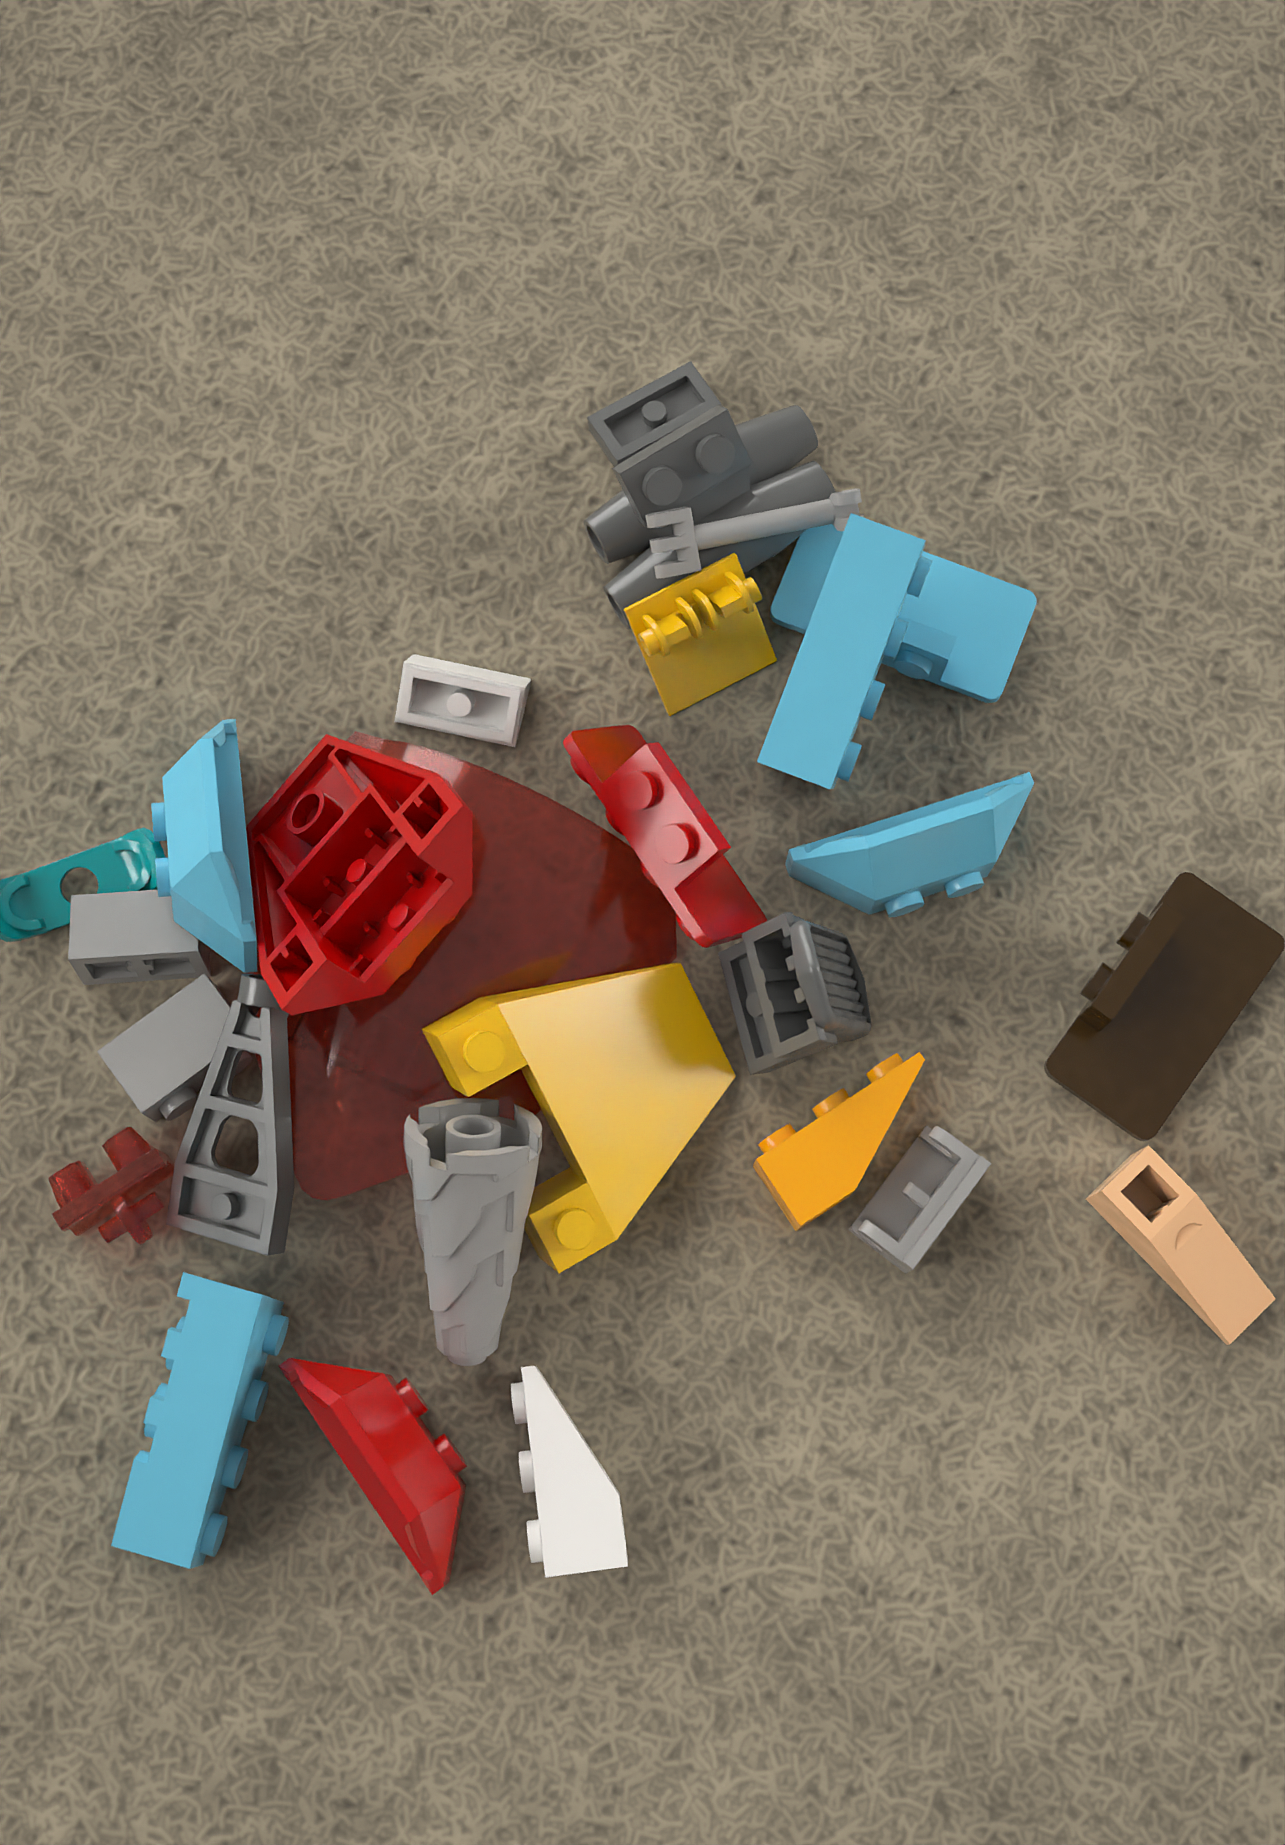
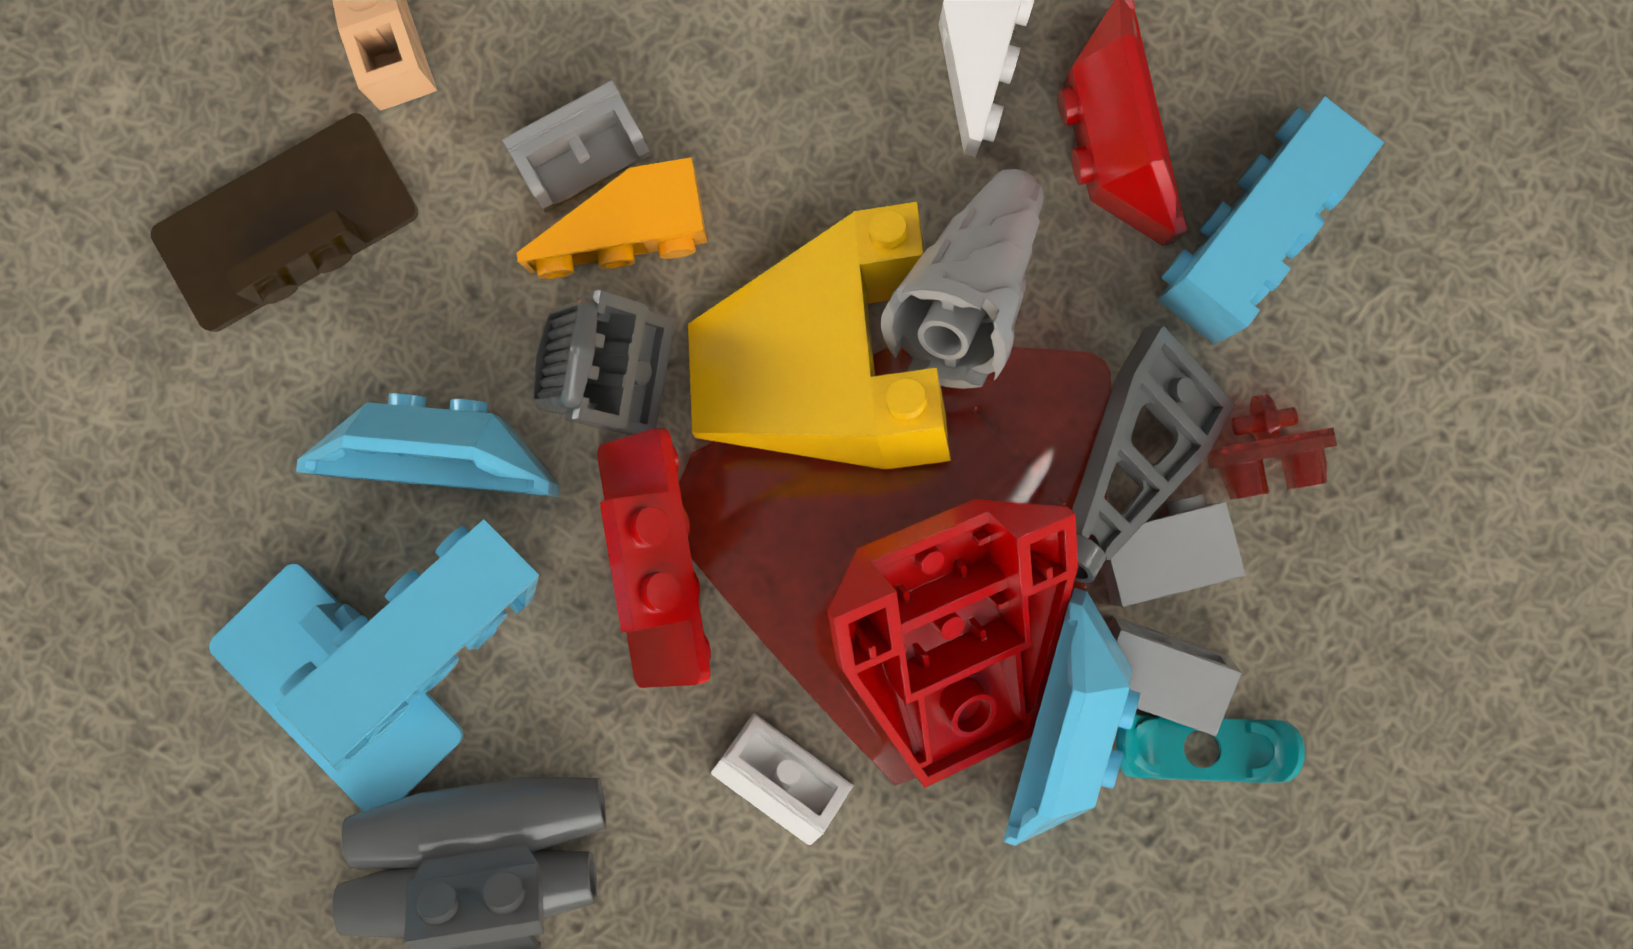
camera: 155 degrees left, 10 degrees up
(691, 538) = (503, 830): light grey hinge -> none
(701, 633) = (533, 741): yellow hinge -> none

